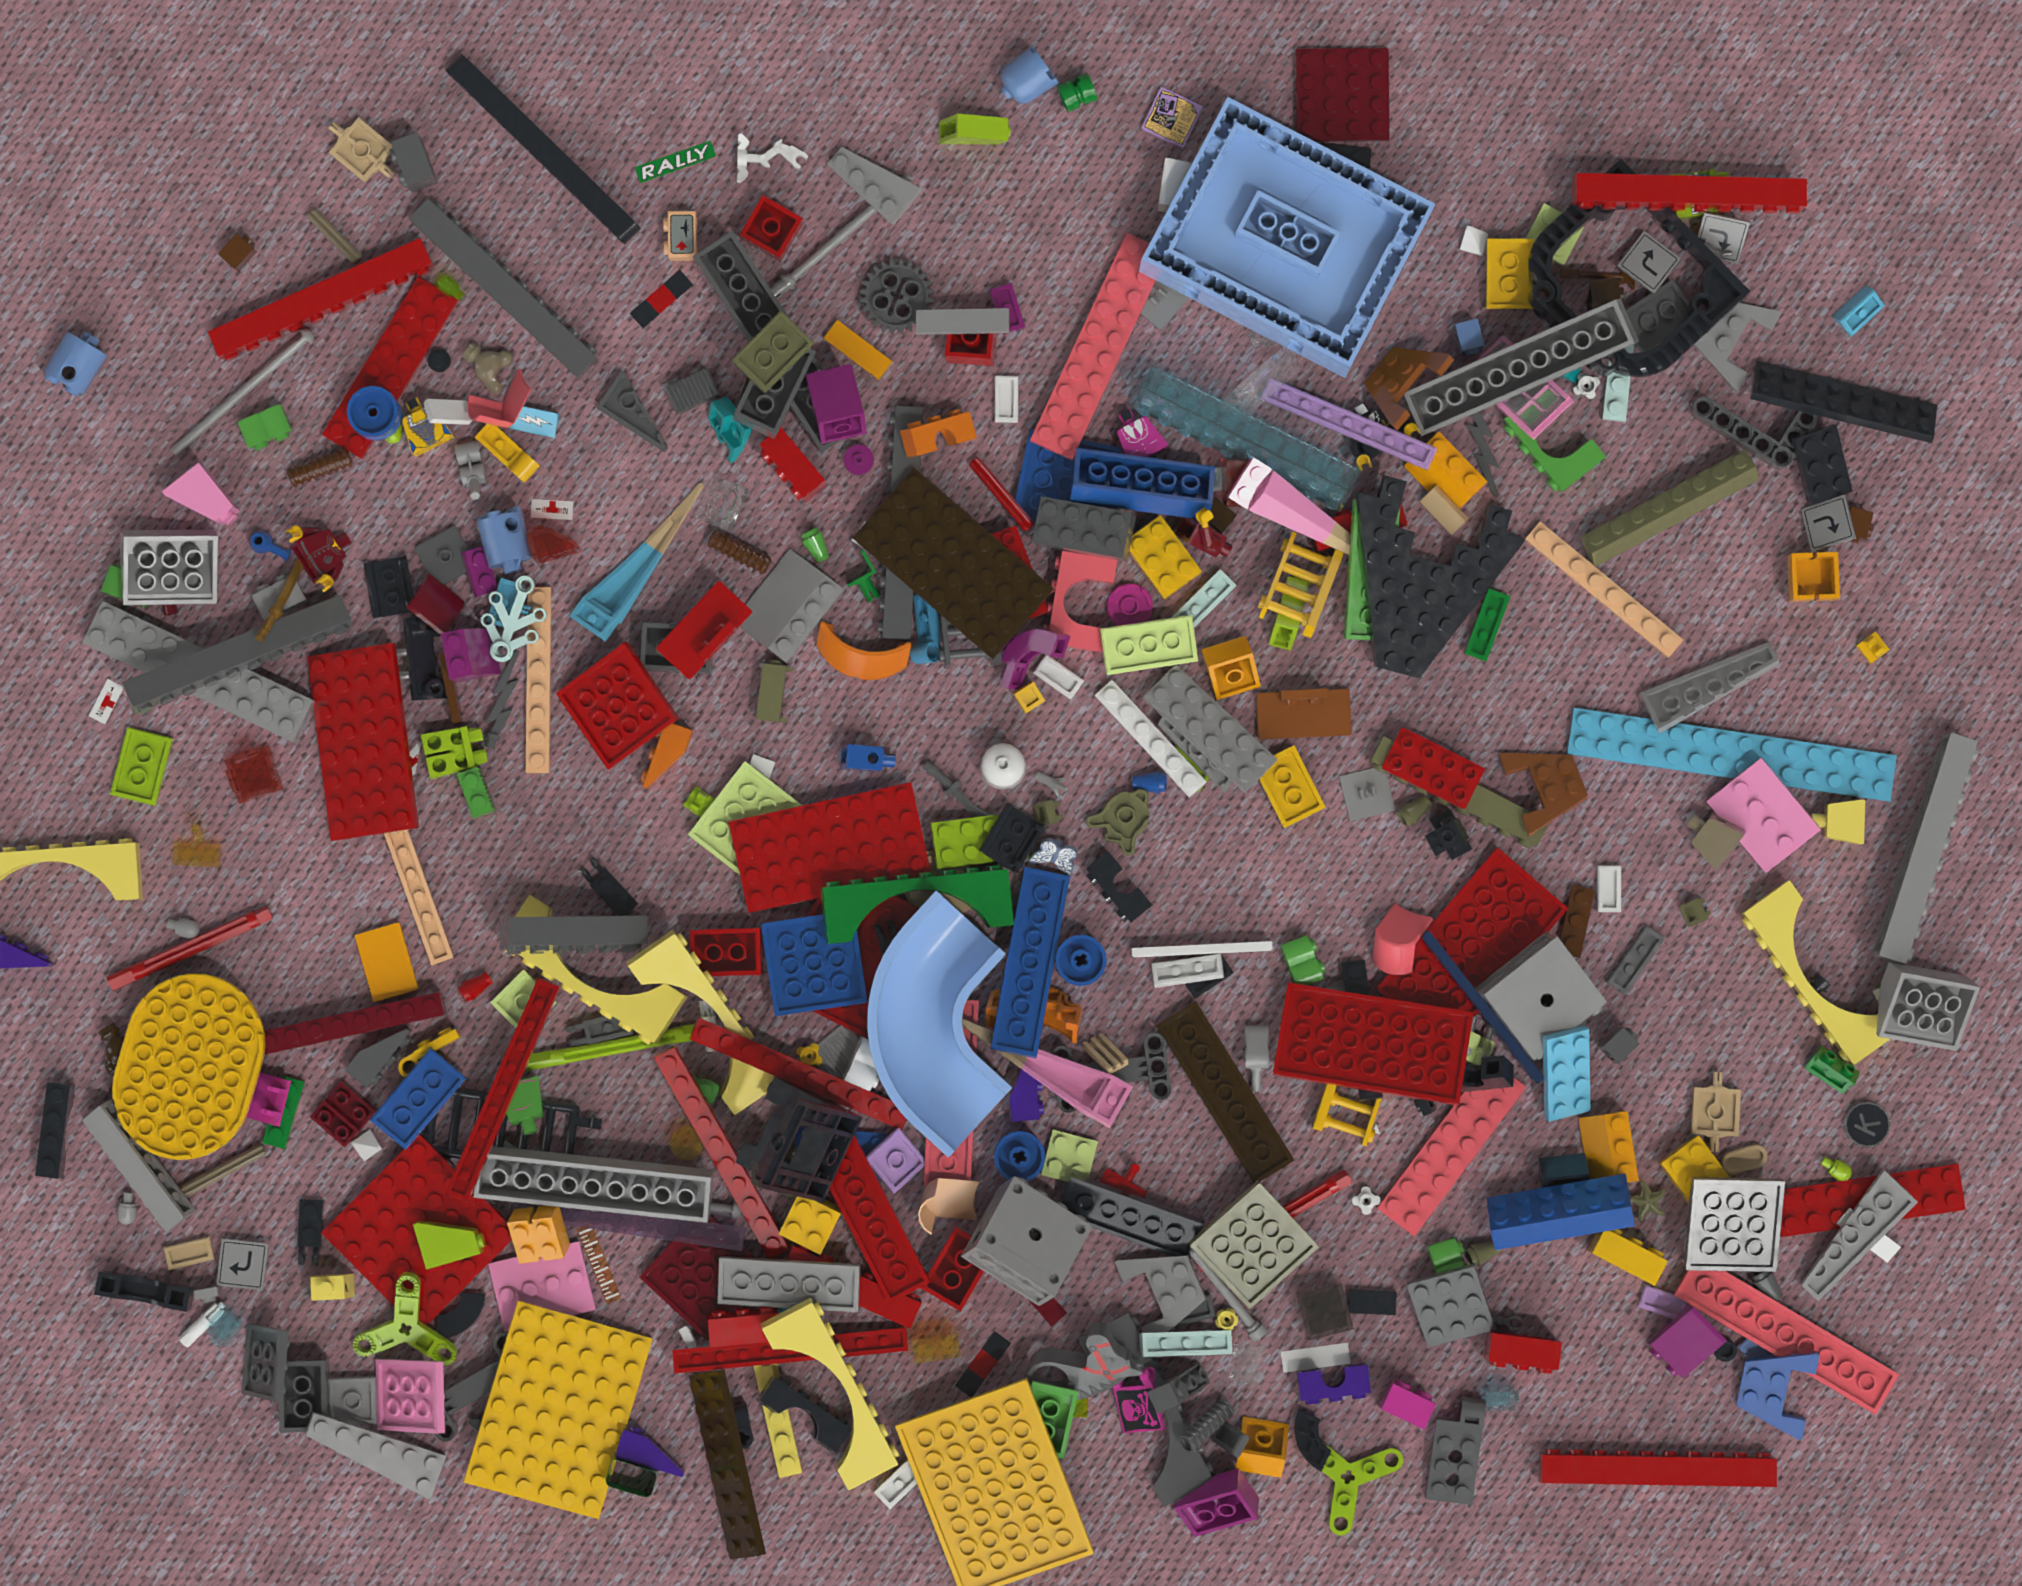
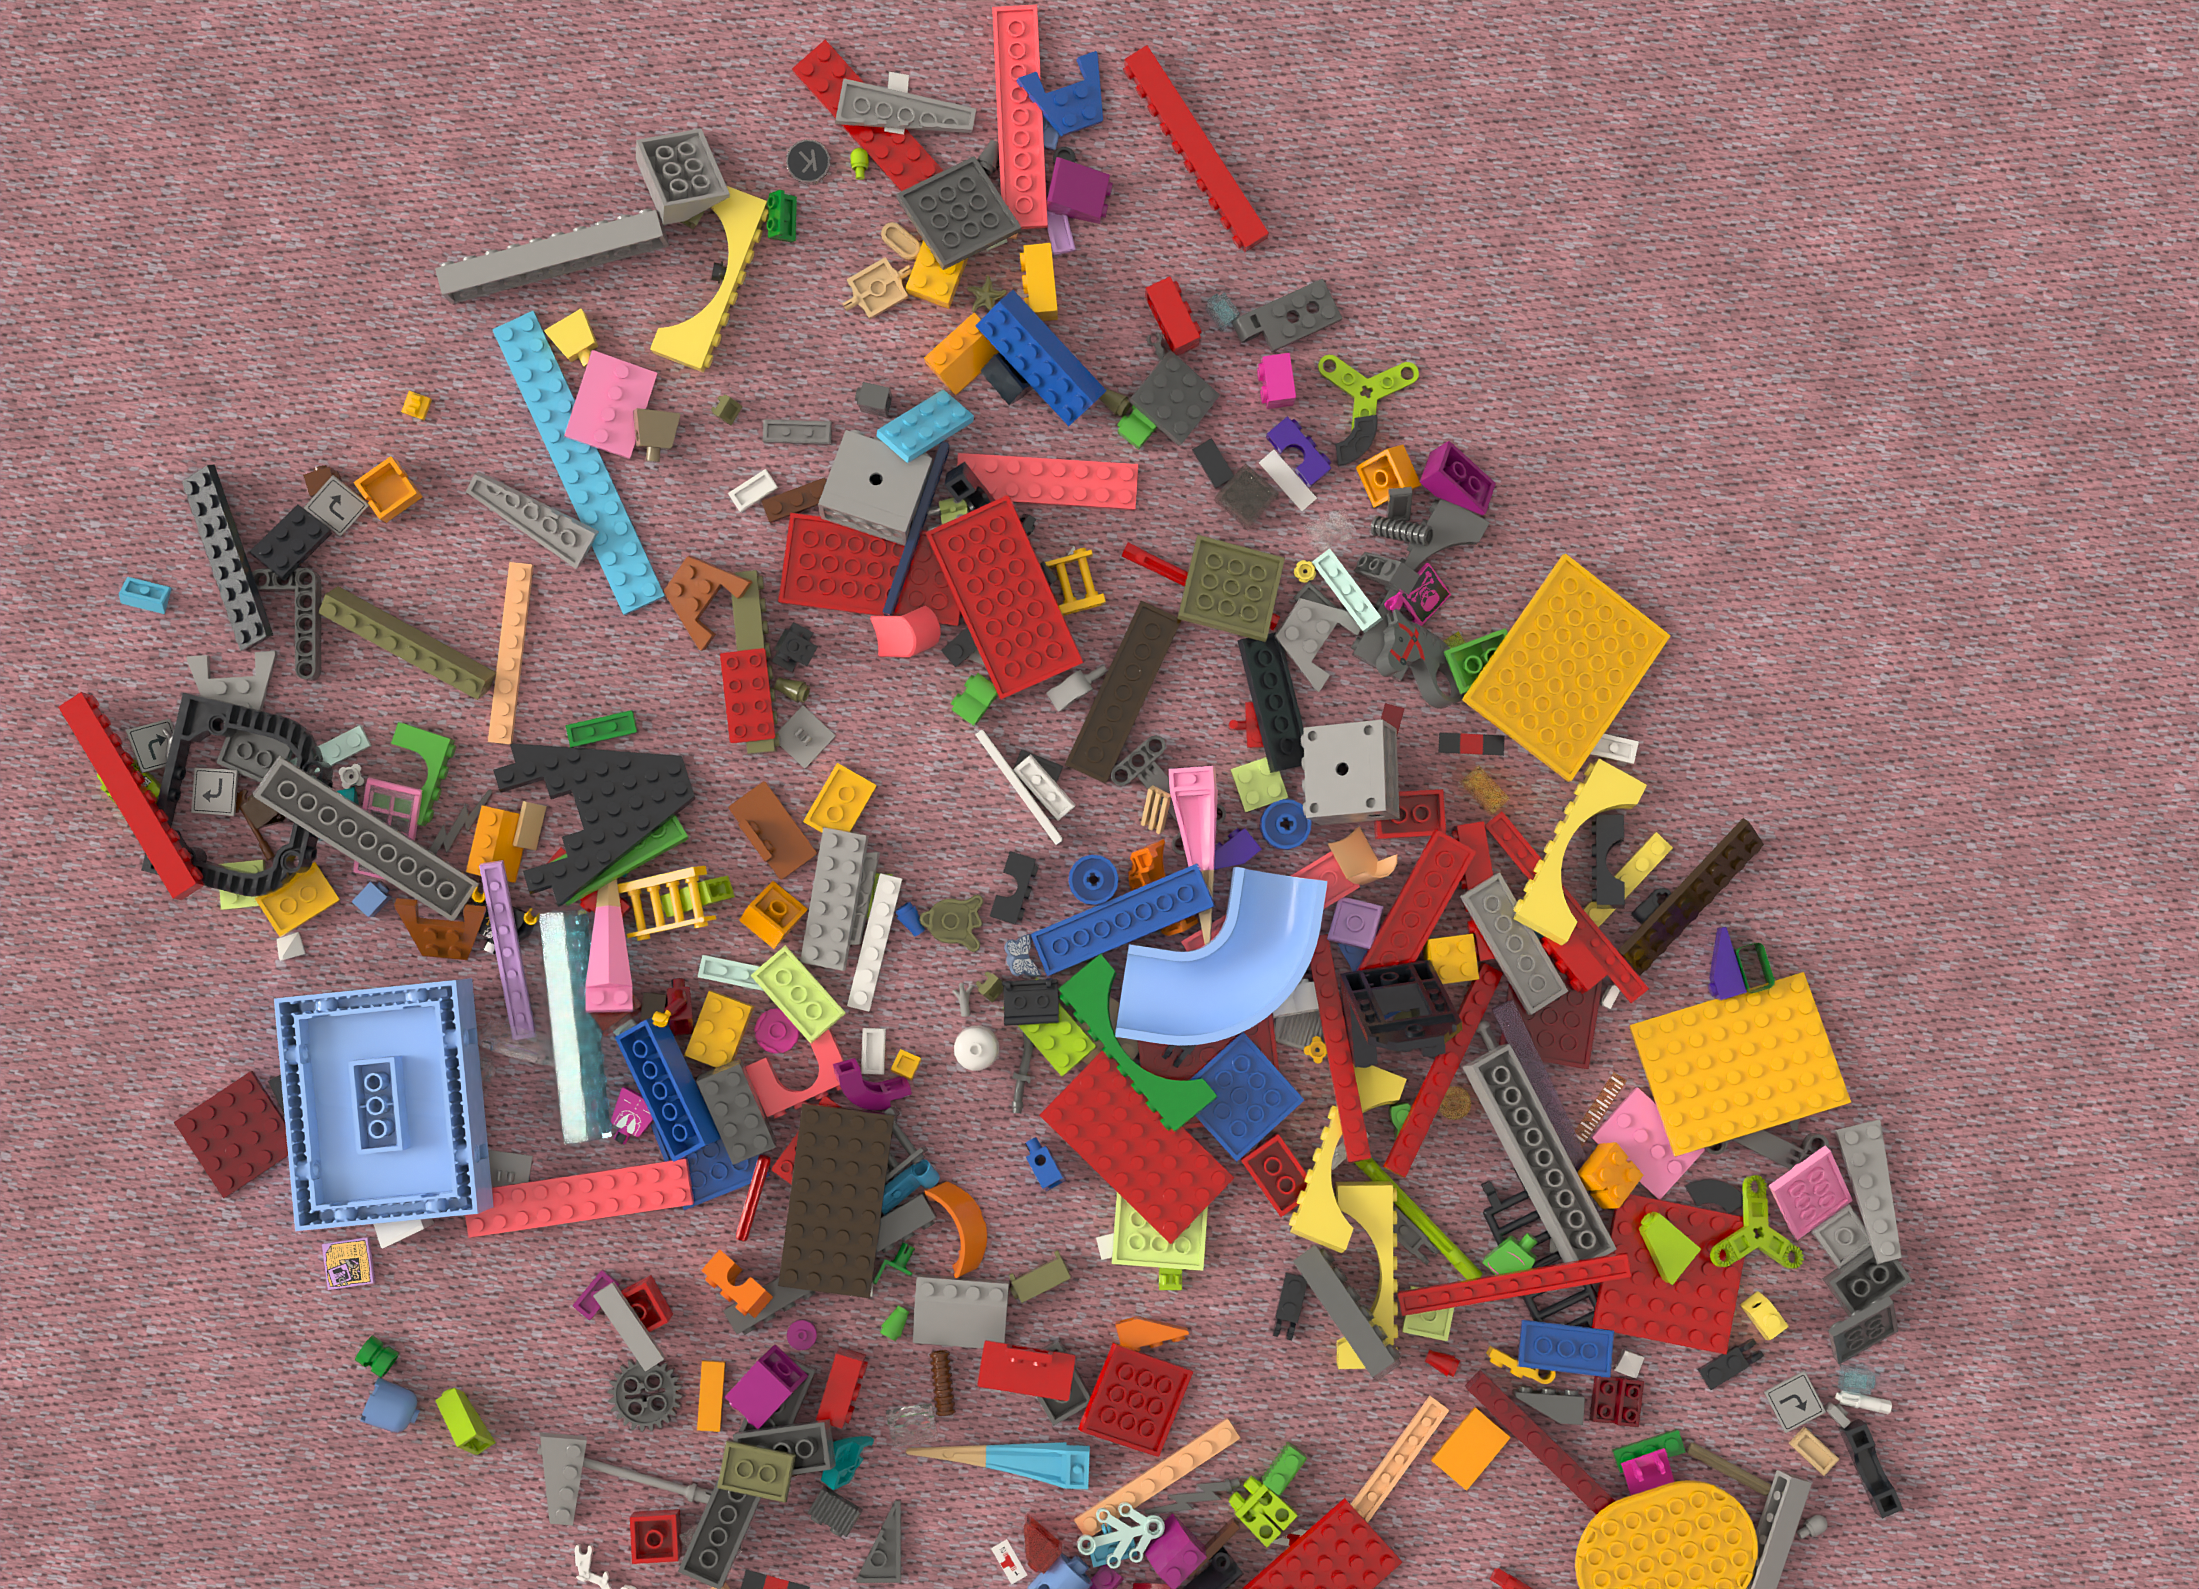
camera: 125 degrees left, 0 degrees up
(1006, 399) = (672, 1245): white tile -> none
(1255, 1329) = (1297, 542): light grey piece -> none
(1372, 1200) = (1130, 526): white plate -> none

